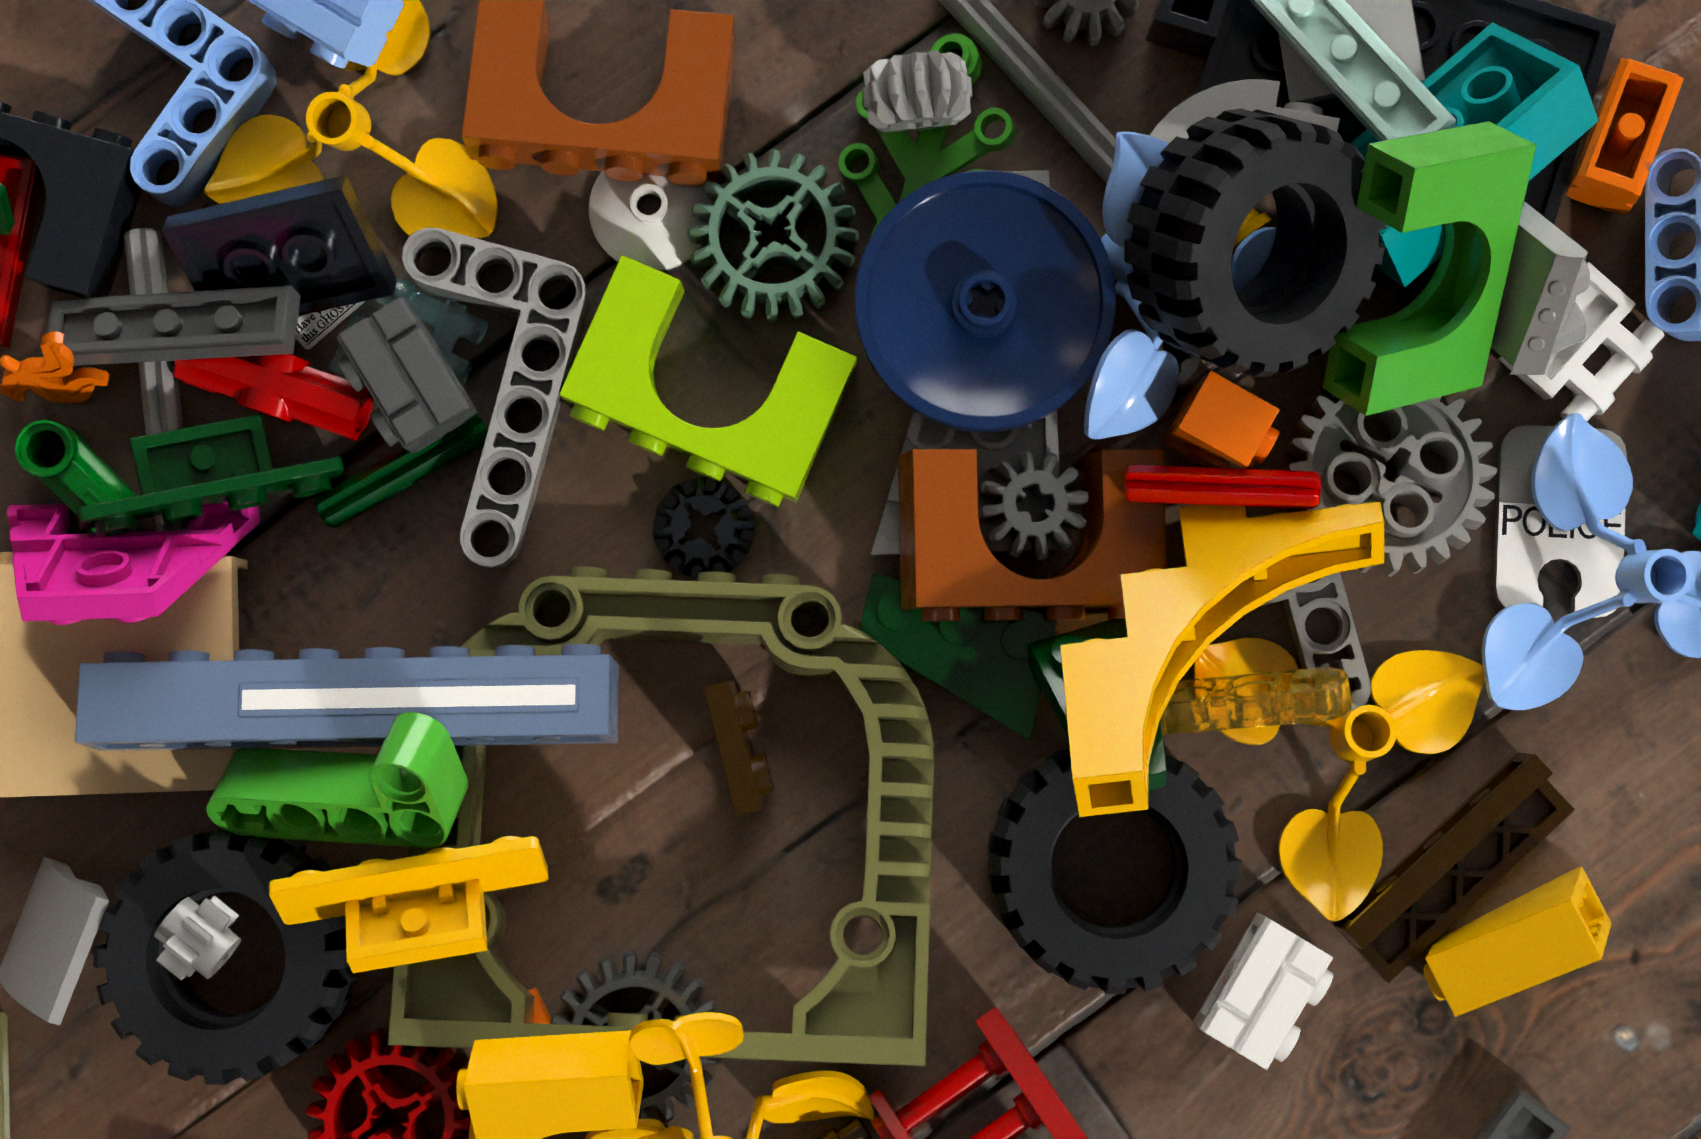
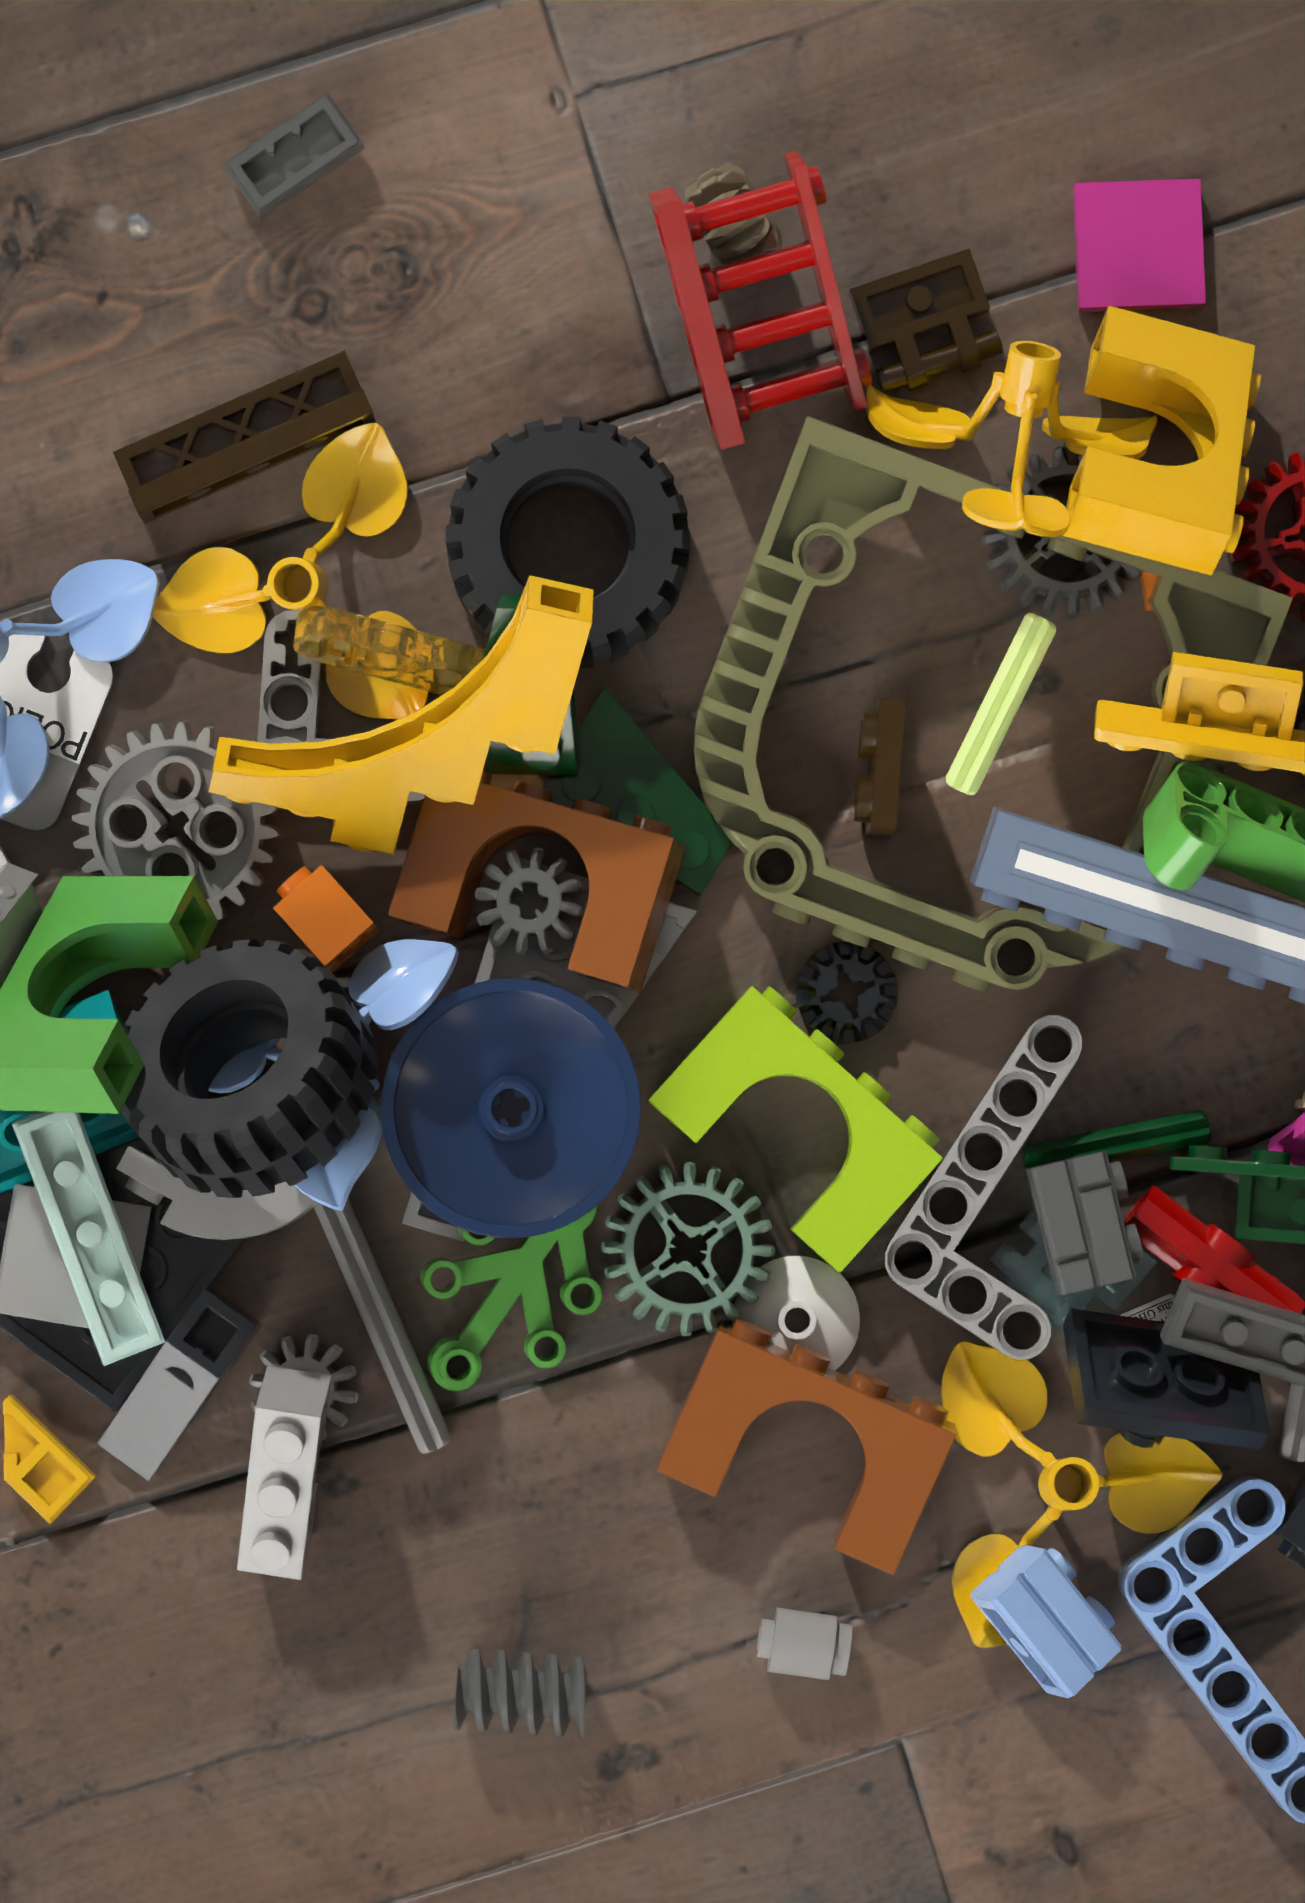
camera: 170 degrees left, 0 degrees up
(641, 844) = (1001, 704): none -> yellowish green axle
(917, 92) = (506, 1332): light grey gear -> none
(1222, 486) = (348, 857): red axle -> none
(1265, 992) = (464, 380): white brick -> none
(1519, 944) = (210, 345): yellow slope -> none

